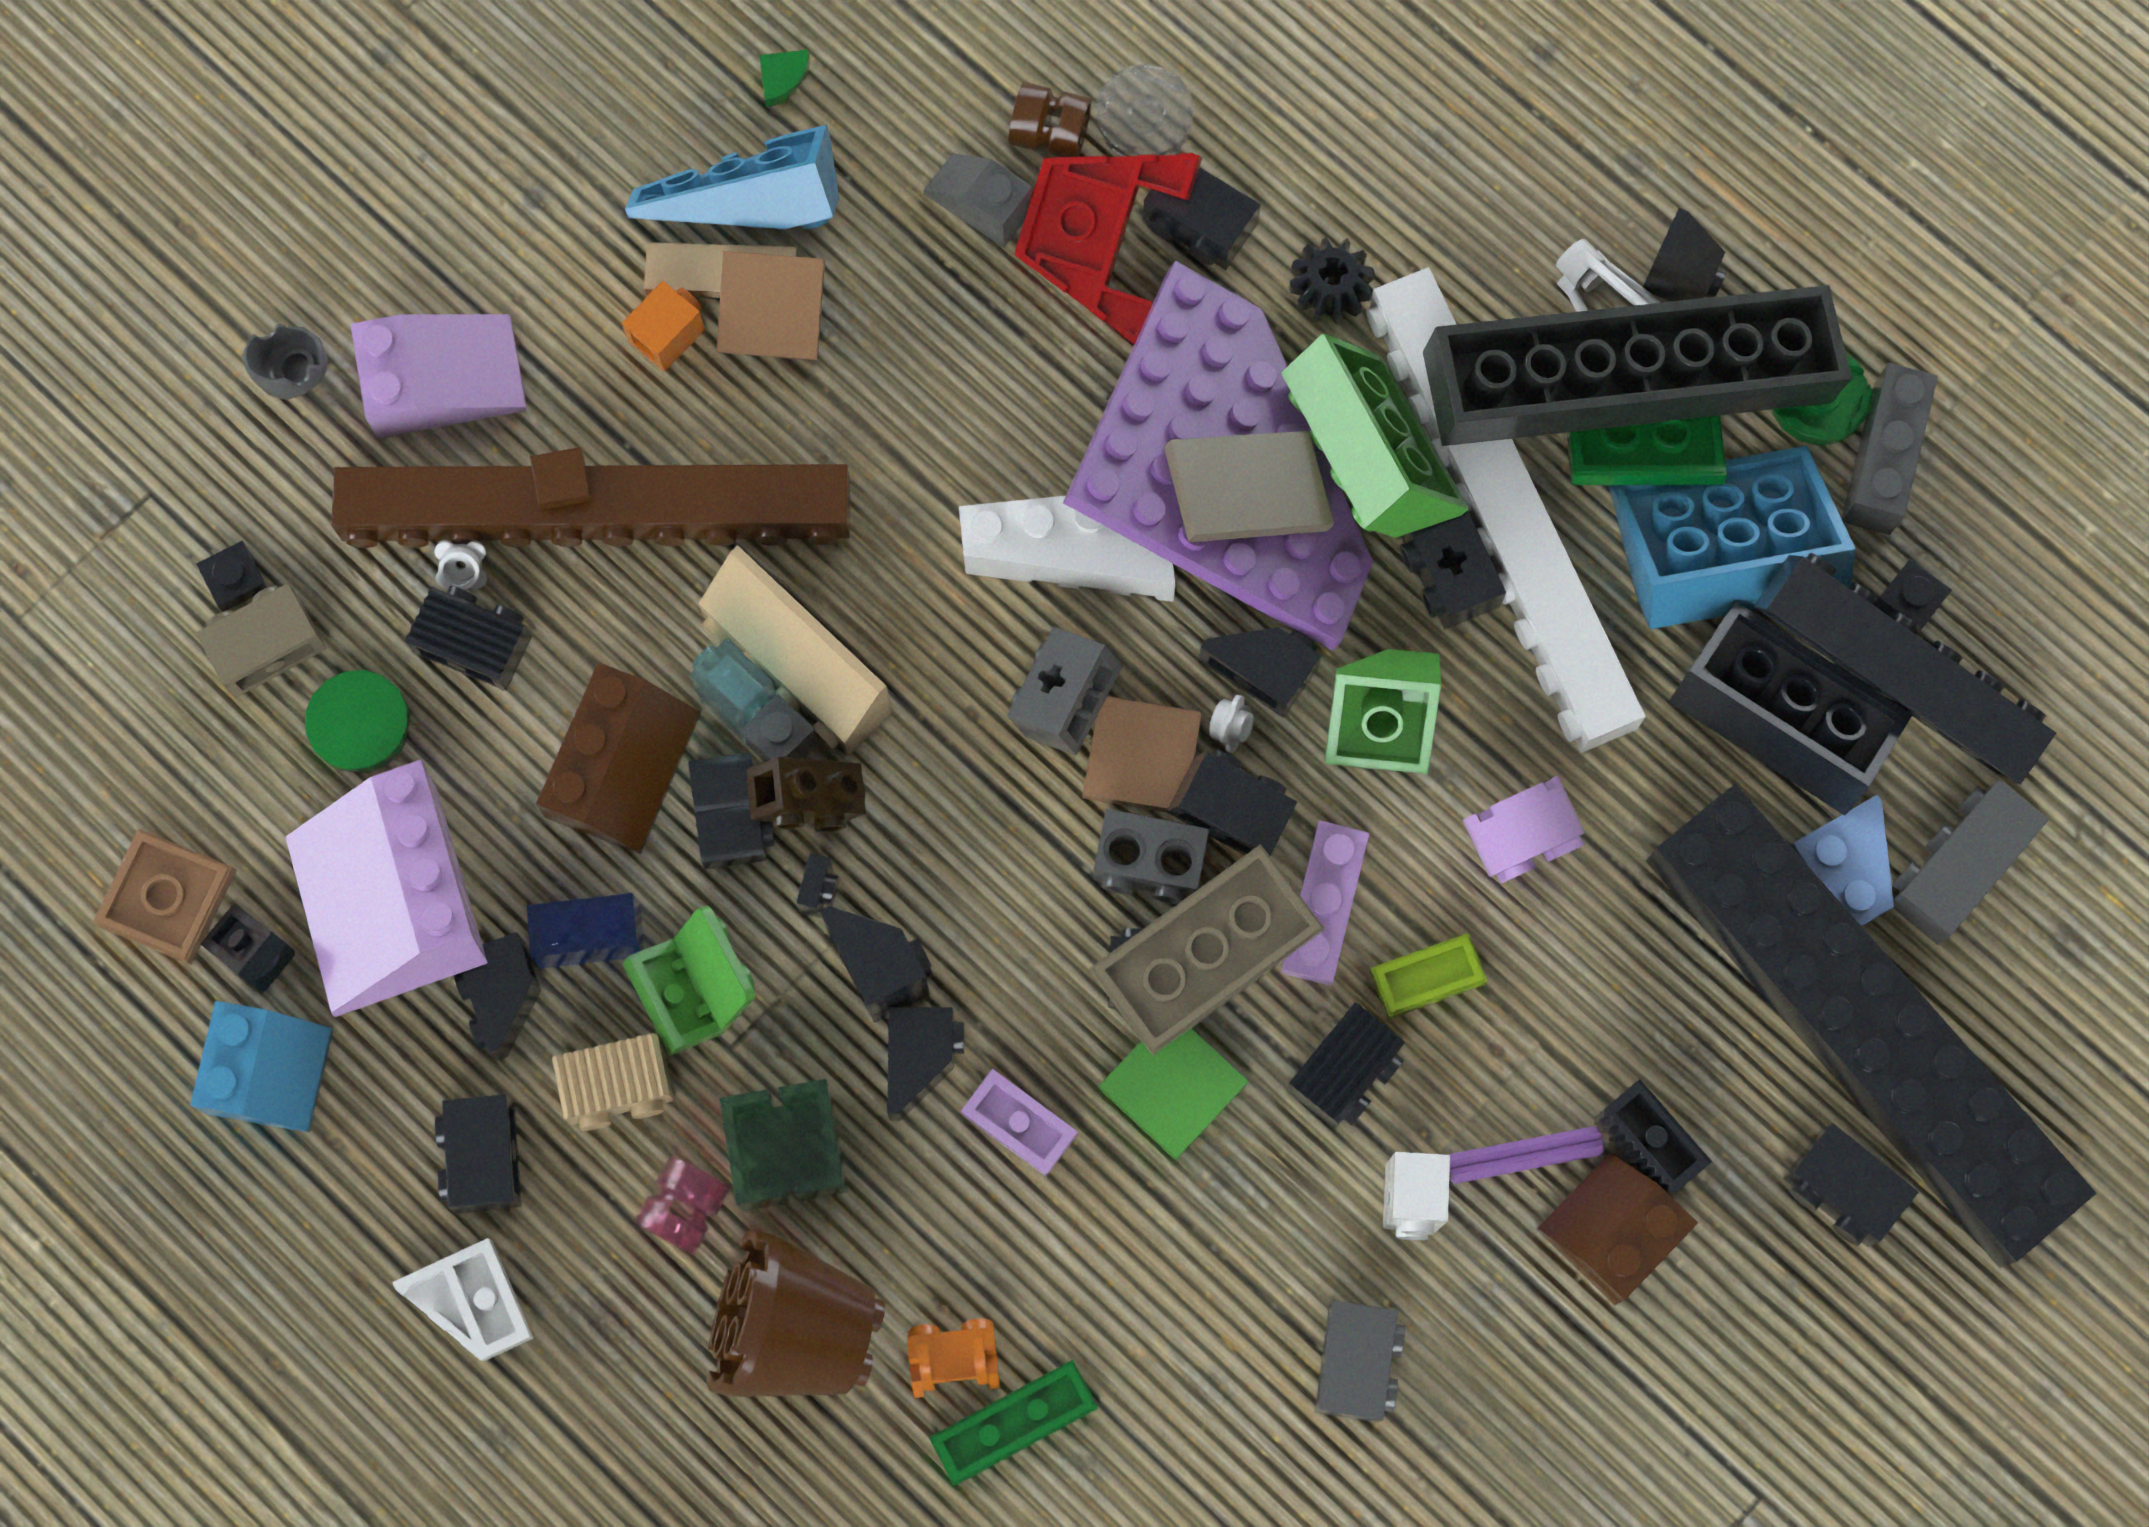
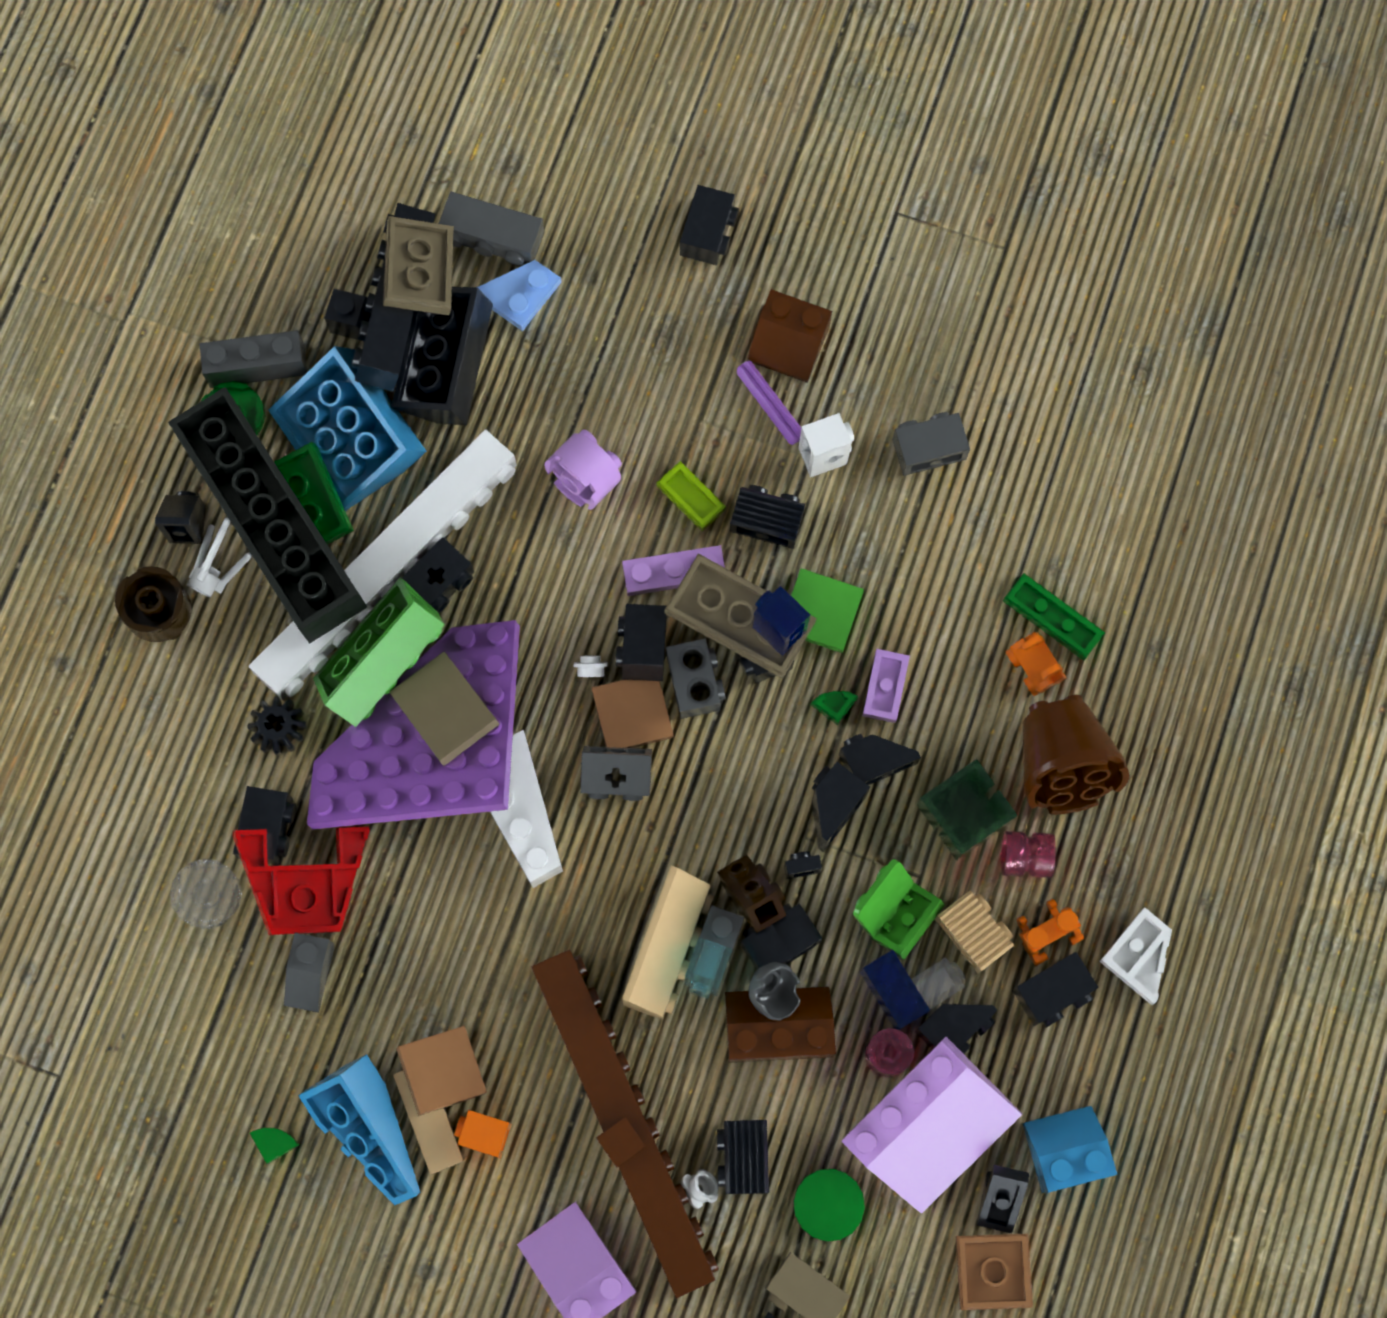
camera: 115 degrees left, 0 degrees up
(505, 881) = (889, 1053): none -> clear pink wheel
(562, 1185) = (1049, 931): none -> orange piece
(567, 994) = (939, 982): none -> clear brick
(656, 758) = (774, 991): none -> dark grey hair
(1027, 1041) = (834, 704): none -> green tile
(1033, 116) = (239, 959): reddish brown wheel -> none
(1162, 981) = (780, 619): none -> clear blue brick
(1264, 664) = (545, 660): black slope -> none
(1385, 711) = (543, 577): bright green slope -> none
(1566, 209) = (143, 589): none -> dark brown brick
(1652, 1138) = (733, 334): black brick -> none
(1870, 1027) = (610, 250): black brick -> none
(1937, 715) = (418, 266): none -> dark tan tile

